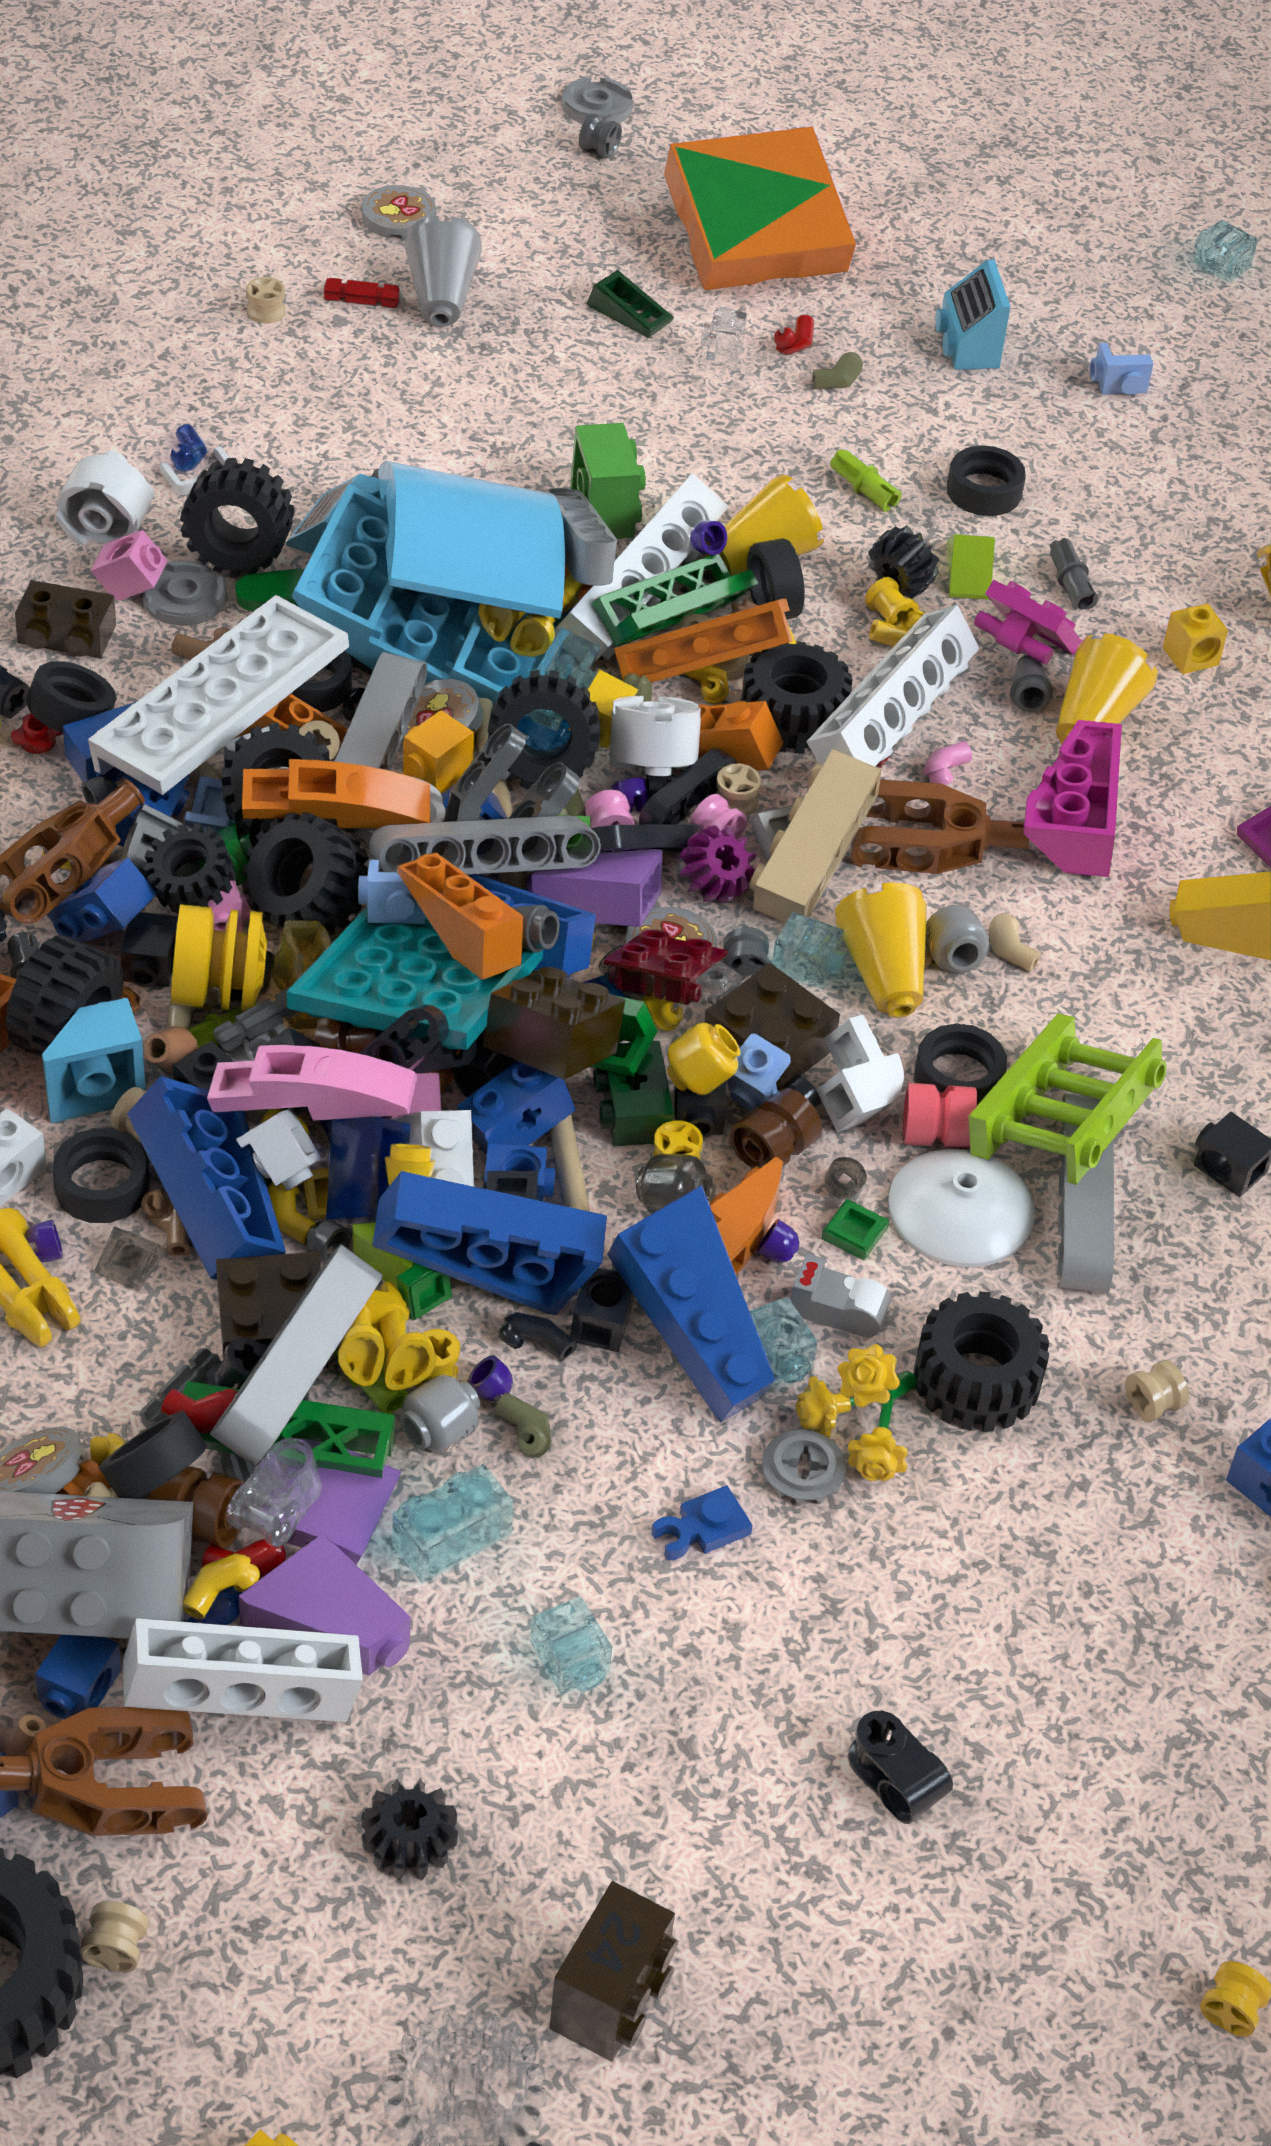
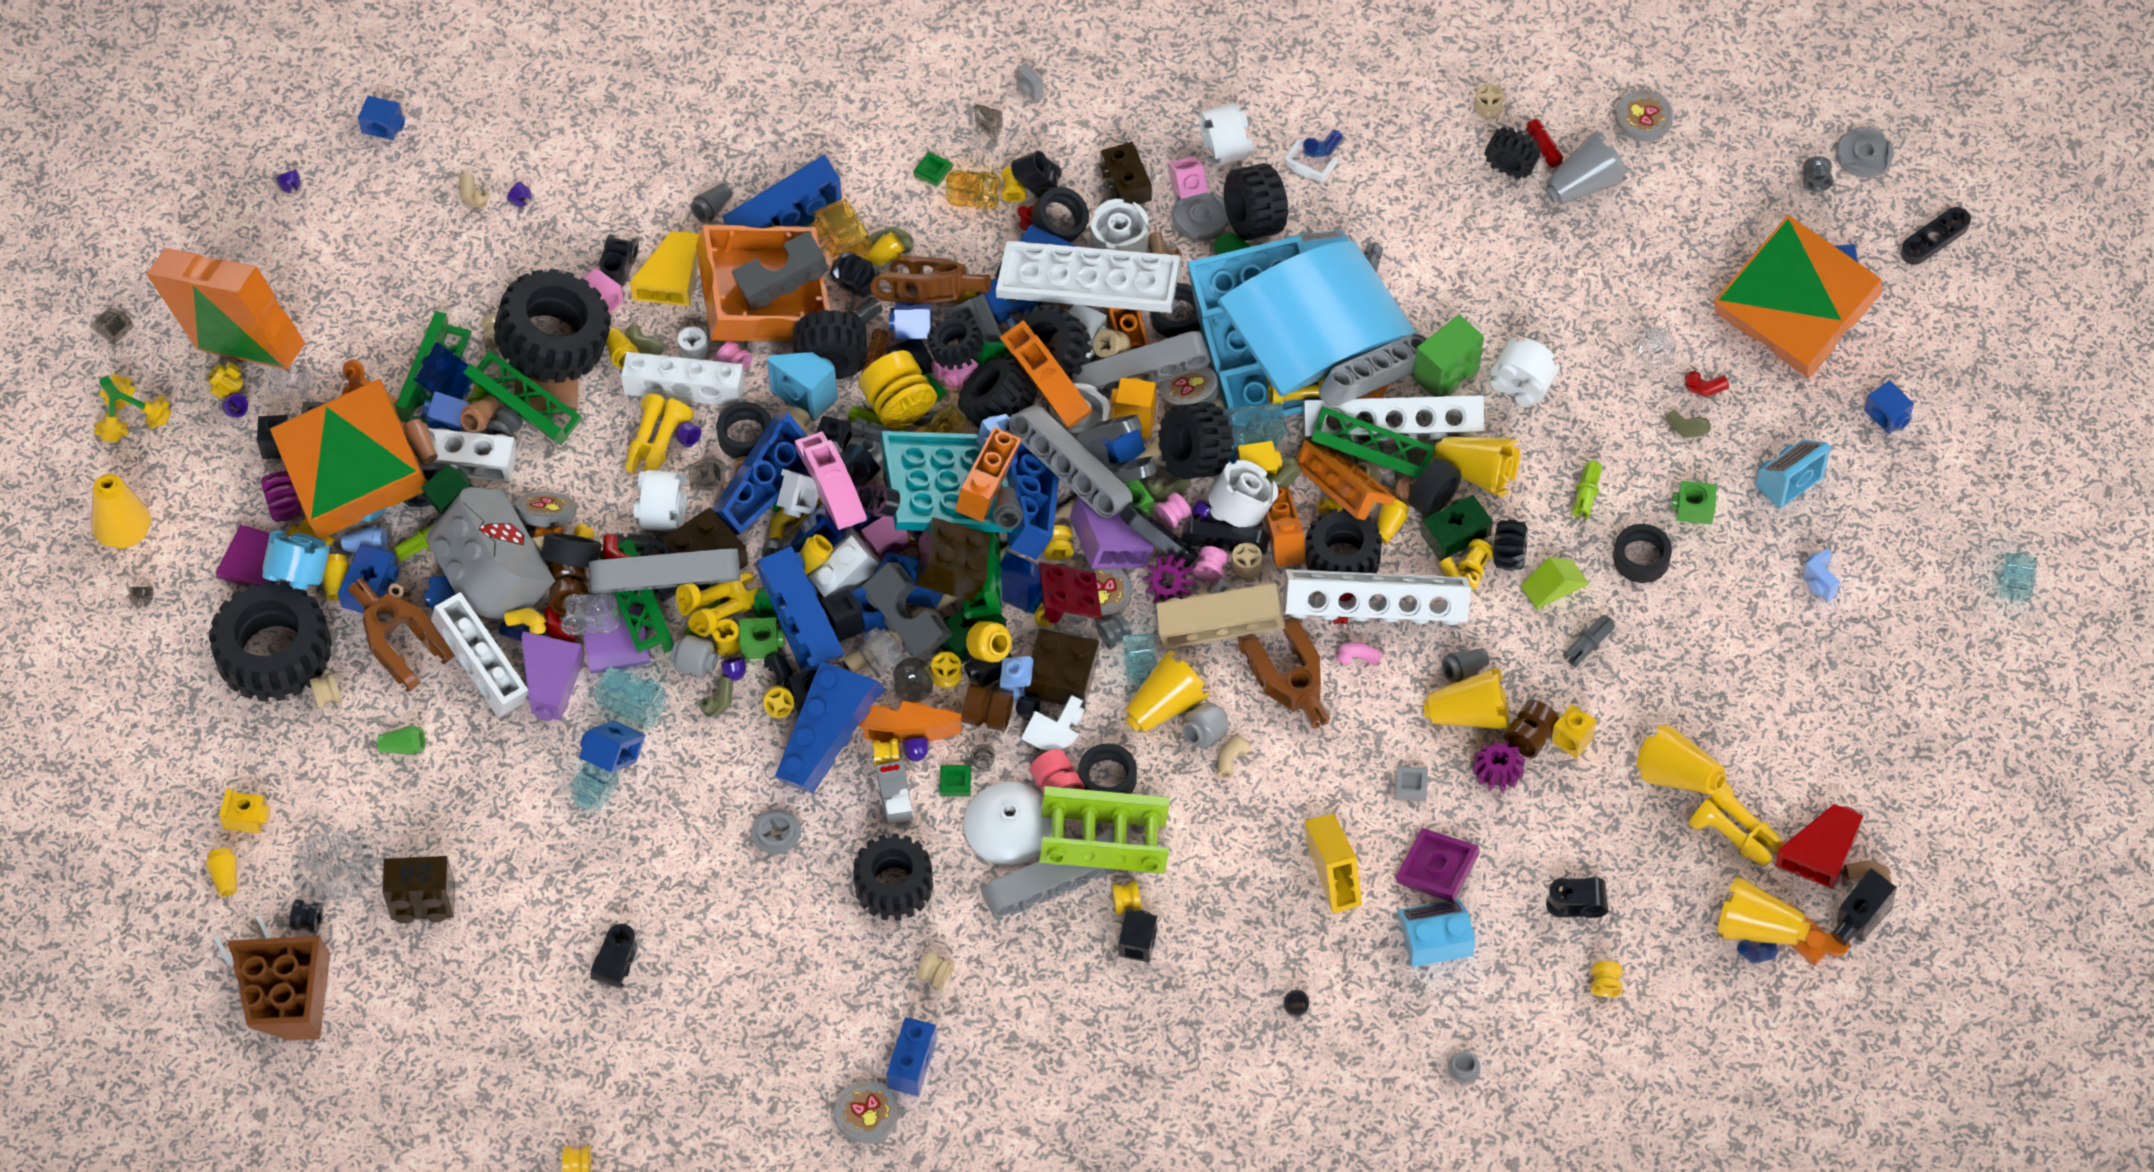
camera: 65 degrees right, 10 degrees up
(146, 652) = (1120, 227): none -> white brick
(150, 1314) = (661, 500): none -> white brick
(178, 1044) = (833, 406): nougat cone -> none
(295, 1872) = (402, 741): none -> bright green cone
(353, 297) = (1512, 152): none -> black tyre
(427, 1842) = (452, 772): black gear -> none
(474, 1318) = (756, 628): none -> bright green brick
(536, 1579) = (611, 746): none -> blue brick
(539, 1121) = (889, 592): none -> dark grey arch
(594, 1352) = (781, 708): none -> yellow wheel
(610, 299) = (1656, 262): dark green slope -> none
(611, 1191) = (881, 651): none -> clear brick
(676, 436) = (1524, 371): none -> white brick
(707, 1519) = (713, 809): blue plate -> none
(713, 533) = (1429, 434): dark purple hinge -> none
(752, 98) = (1938, 225): none -> black beam
(768, 1275) = (885, 752): none -> yellow wheel
(783, 1326) = (844, 769): clear light blue brick -> none
(836, 597) = (1456, 527): none -> dark green brick
(865, 1380) = (814, 821): yellow plant -> none
(943, 229) = (1889, 407): none -> blue brick
(953, 410) = (1701, 493): none -> bright green brick
(1025, 619) = (1508, 635): dark pink plate -> none
(1076, 802) = (1356, 735): dark pink wedge -> none
(1166, 1138) = (1126, 897): none -> yellow wheel
(1168, 805) = (1411, 783): none -> light grey plate
(1179, 672) = (1531, 728): none -> reddish brown wheel
(1196, 720) = (1498, 765): none -> magenta gear

